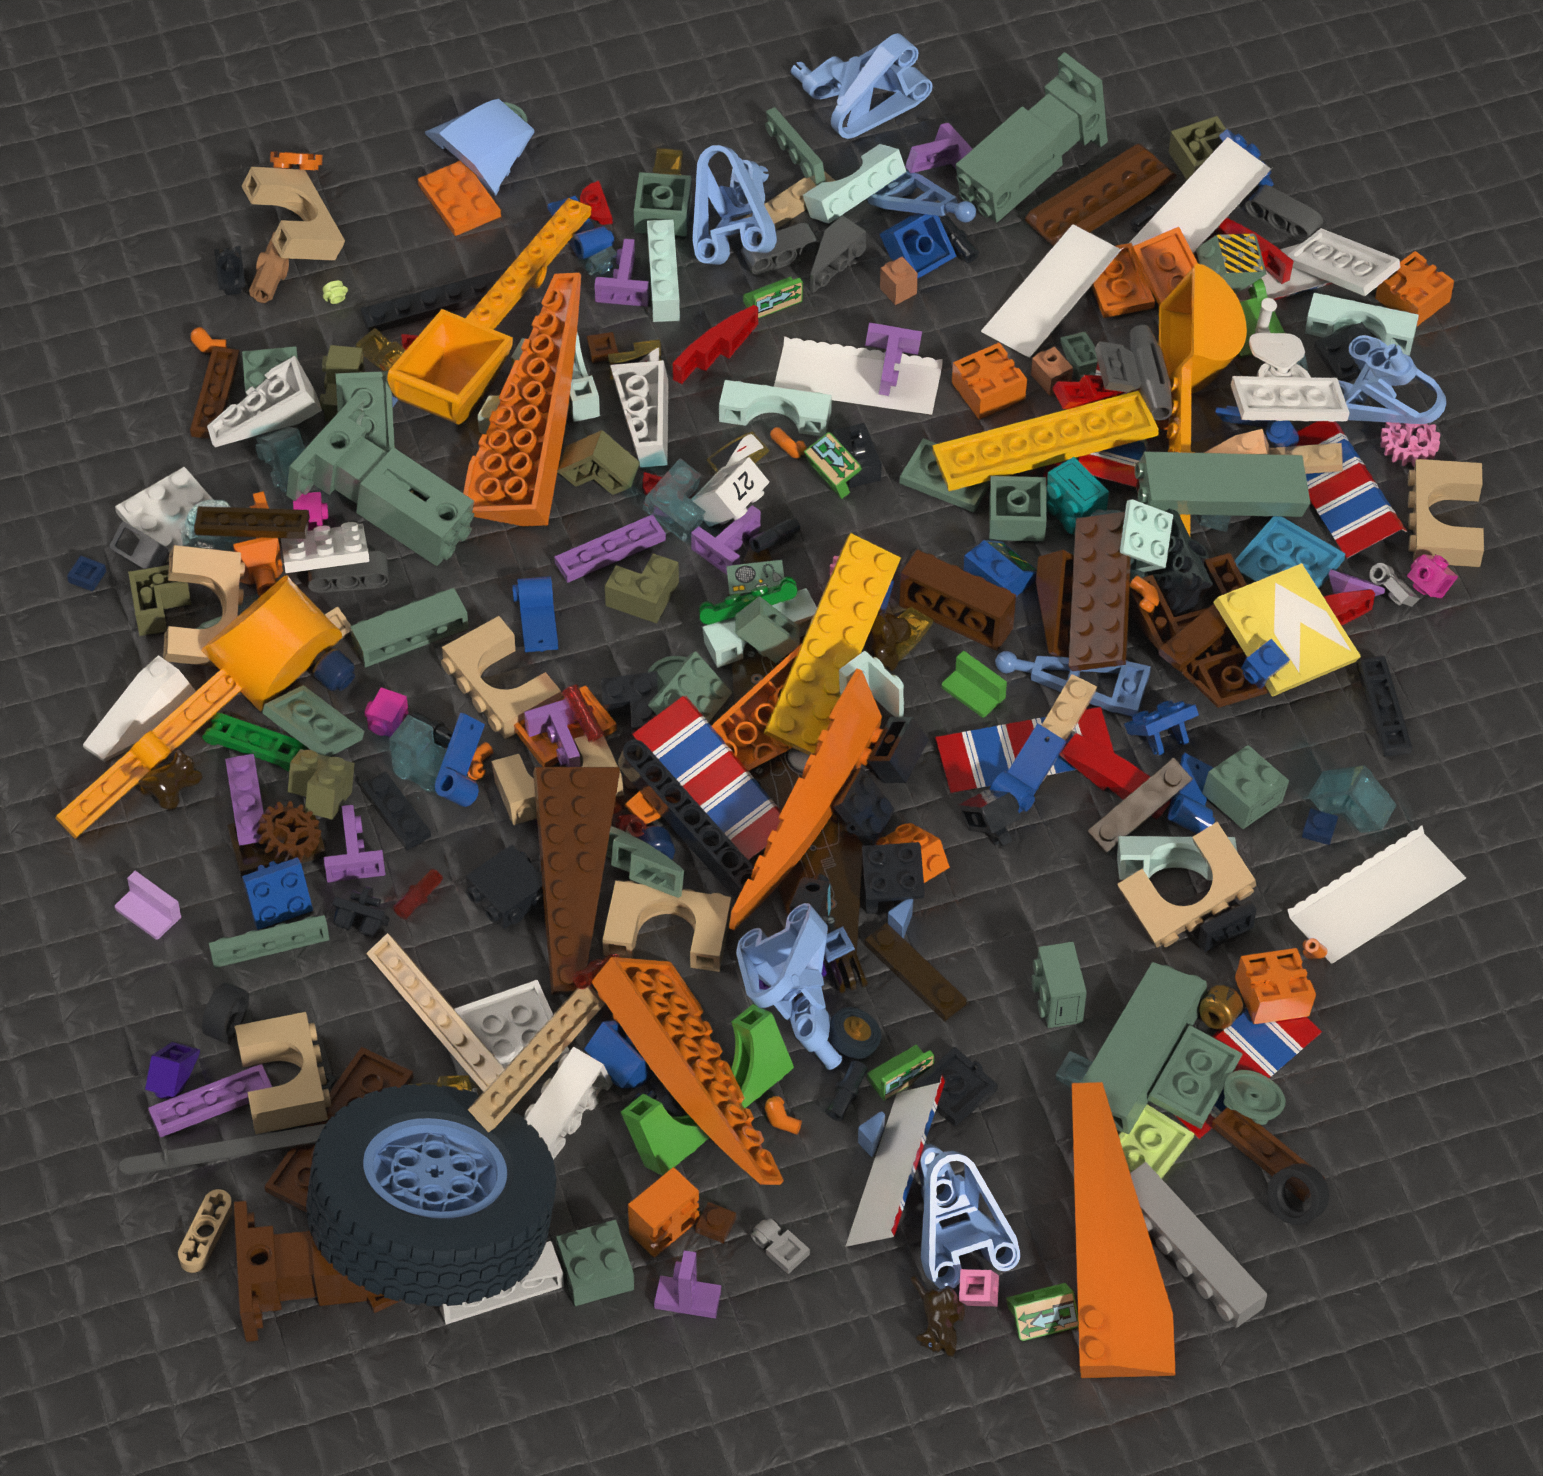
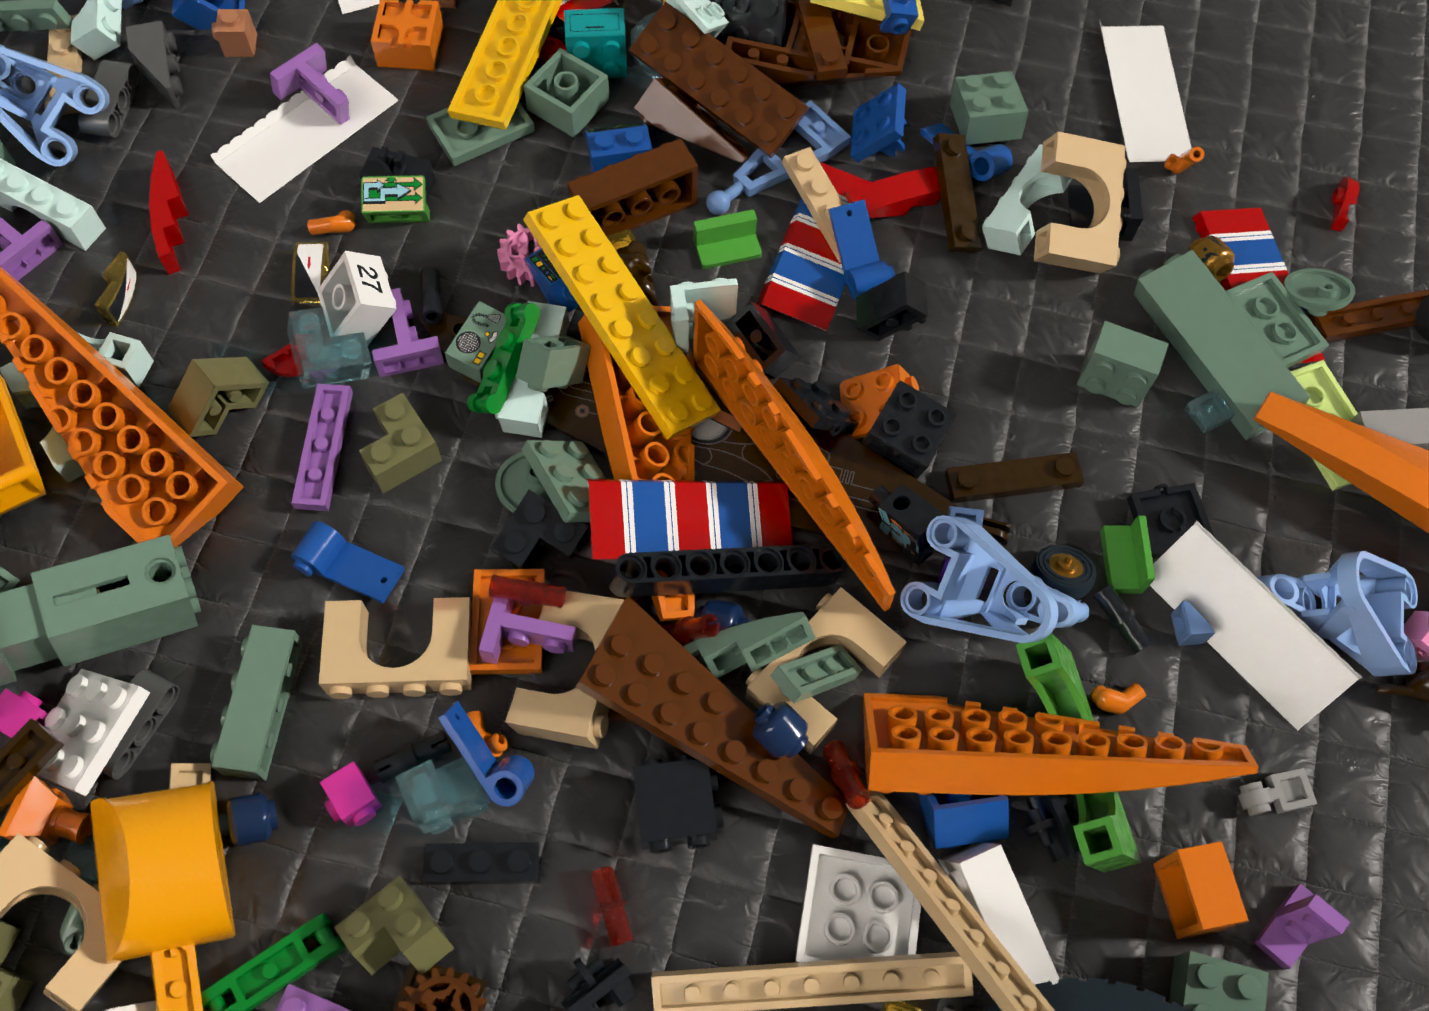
camera: 60 degrees left, 10 degrees up
(313, 721) = (301, 887): sand green plate -> none
(356, 862) = (508, 945): medium lavender bracket -> none
(595, 908) = (780, 729): none -> dark blue head
(600, 346) = (76, 308): reddish brown plate -> none
(644, 402) = (184, 313): white wedge -> none
(654, 913) = (816, 673): none -> sand green plate
(715, 1222) = (1214, 831): reddish brown plate -> none
(745, 401) = (311, 185): light aqua arch -> none
(775, 296) = (156, 134): panel -> none
(900, 916) = (954, 452): medium blue slope -> none
(1147, 591) = (751, 46): orange arm -> none
(1275, 986) = (1213, 206): orange piece -> none
(1320, 826) = (1052, 87): dark blue plate -> none
(1355, 794) = (1049, 40): clear light blue brick -> none
(1373, 1083) = (1344, 194): none -> red plate

